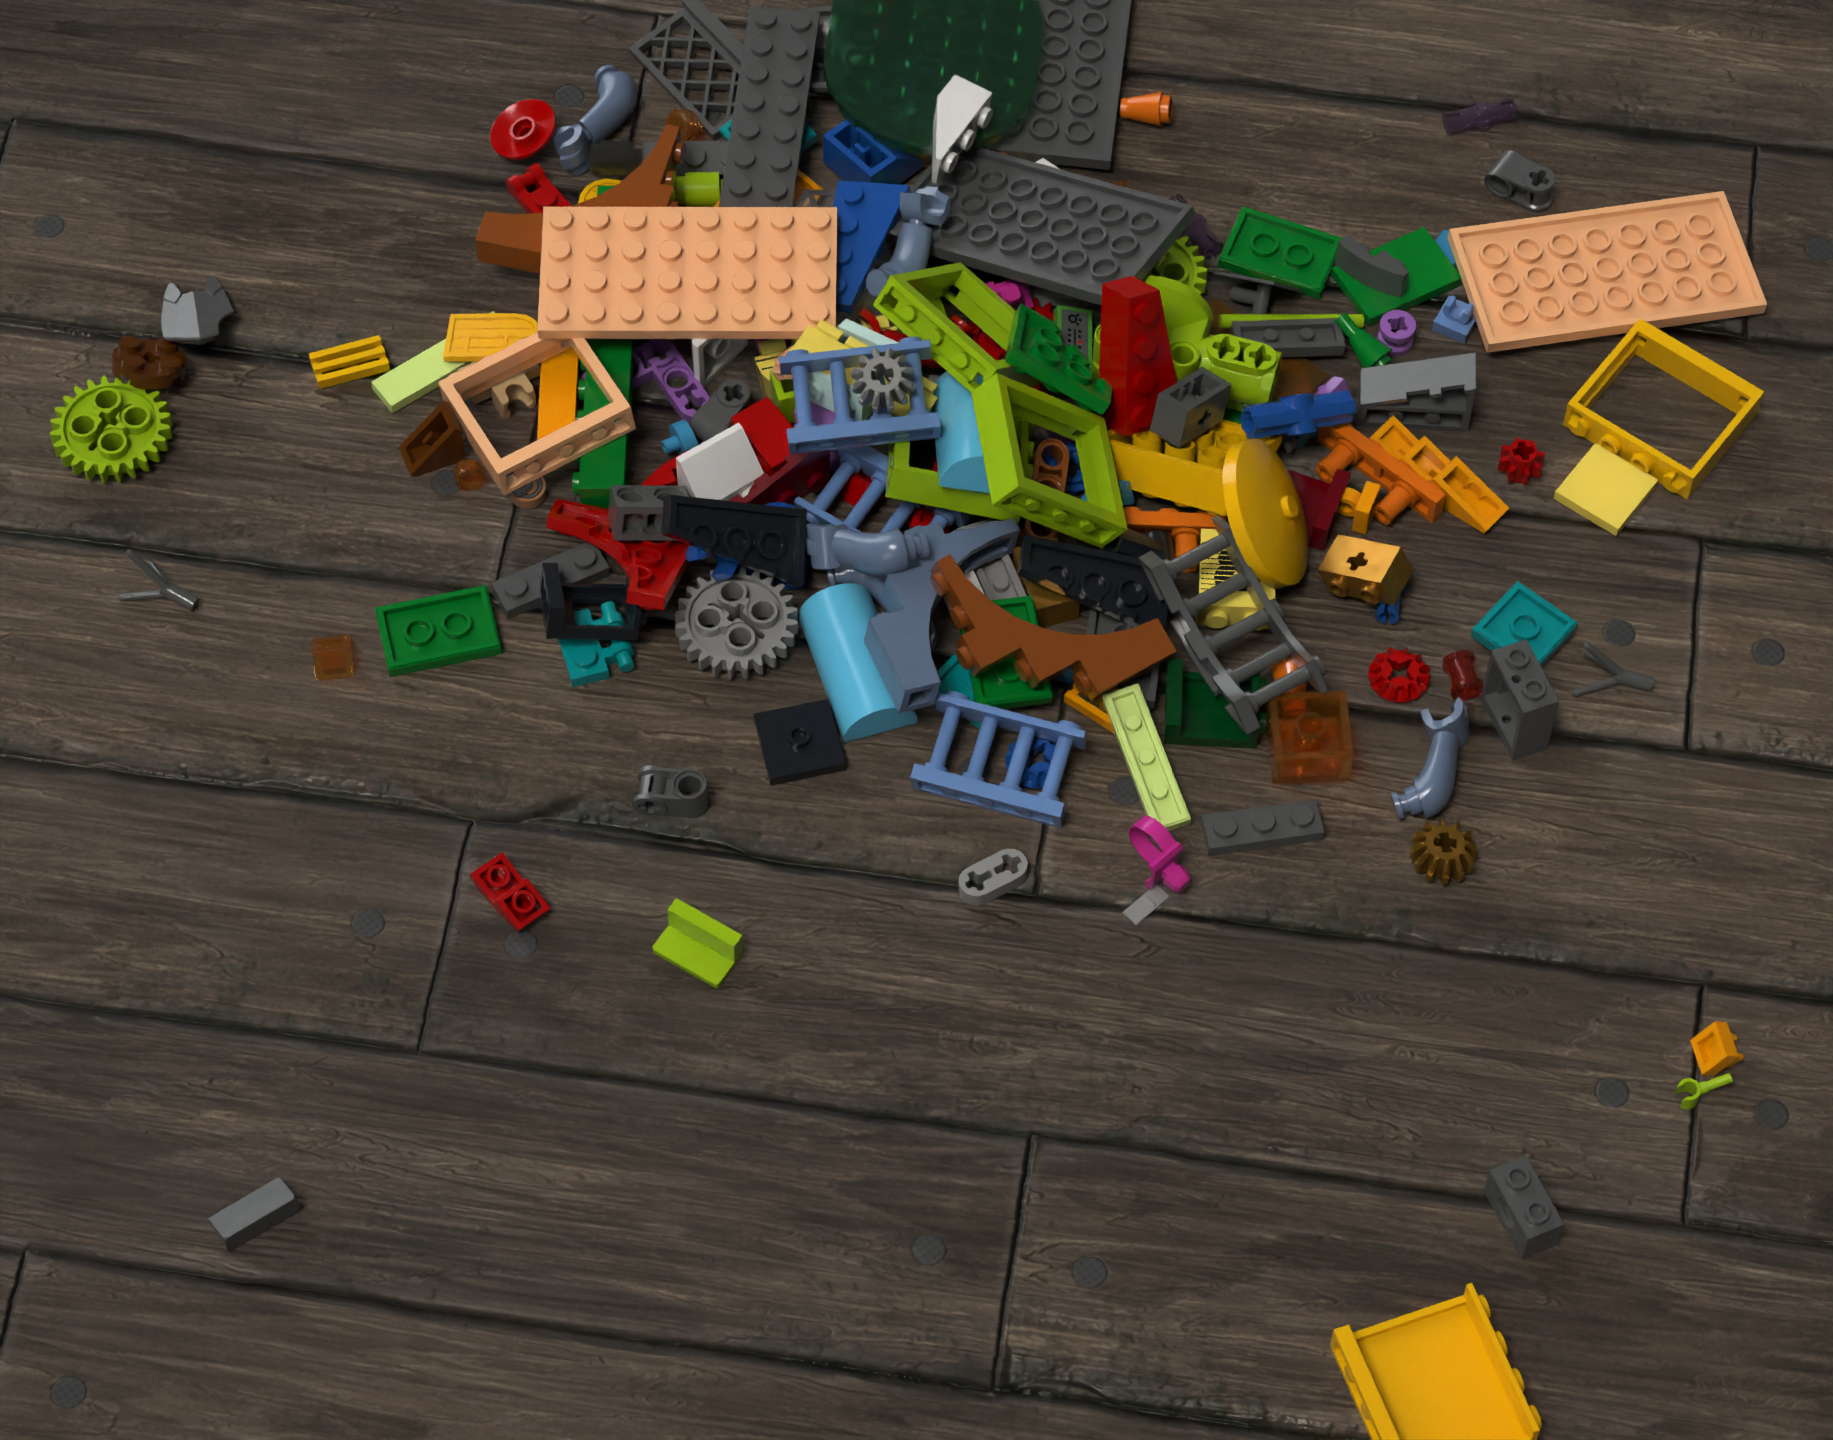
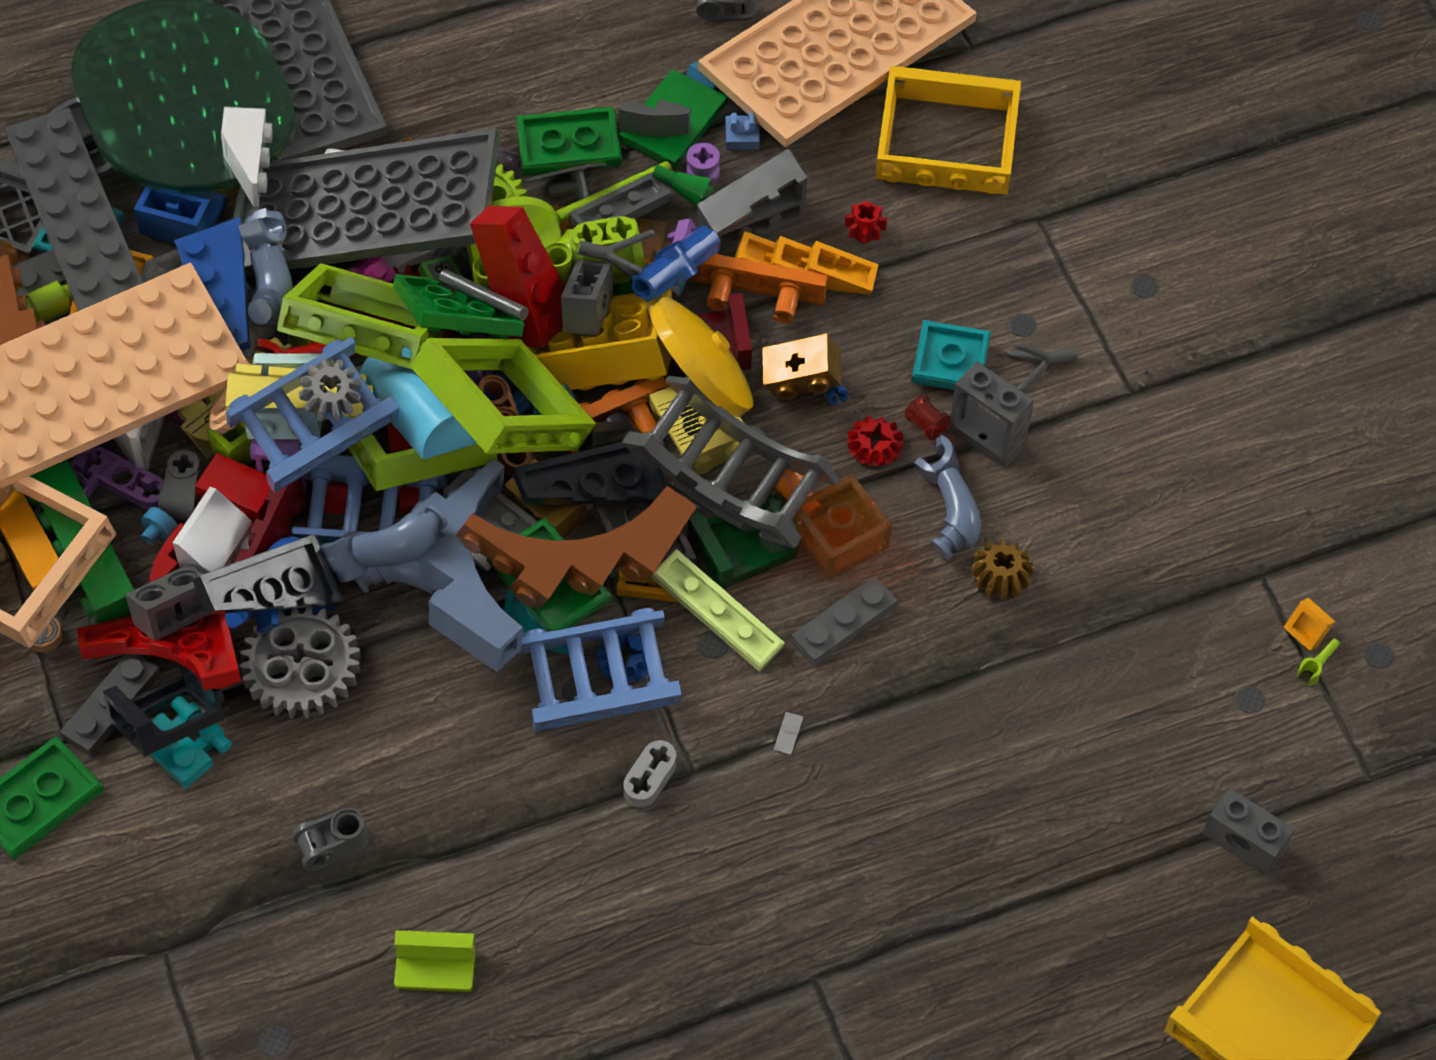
camera: 30 degrees left, 0 degrees up
(509, 893) = (237, 1001): red slope -> none
(799, 742) = (415, 739): black plate -> none
(835, 633) = (397, 630): medium azure brick -> none
(1090, 360) = (483, 294): none -> dark grey bar
(1148, 108) = (390, 70): orange cone -> none
(1161, 864) = (802, 697): dark pink piece -> none
(1229, 372) = (606, 252): none -> dark grey plant
(1360, 505) = (763, 316): light orange tile -> none
(1605, 489) = (942, 215): light yellow tile -> none

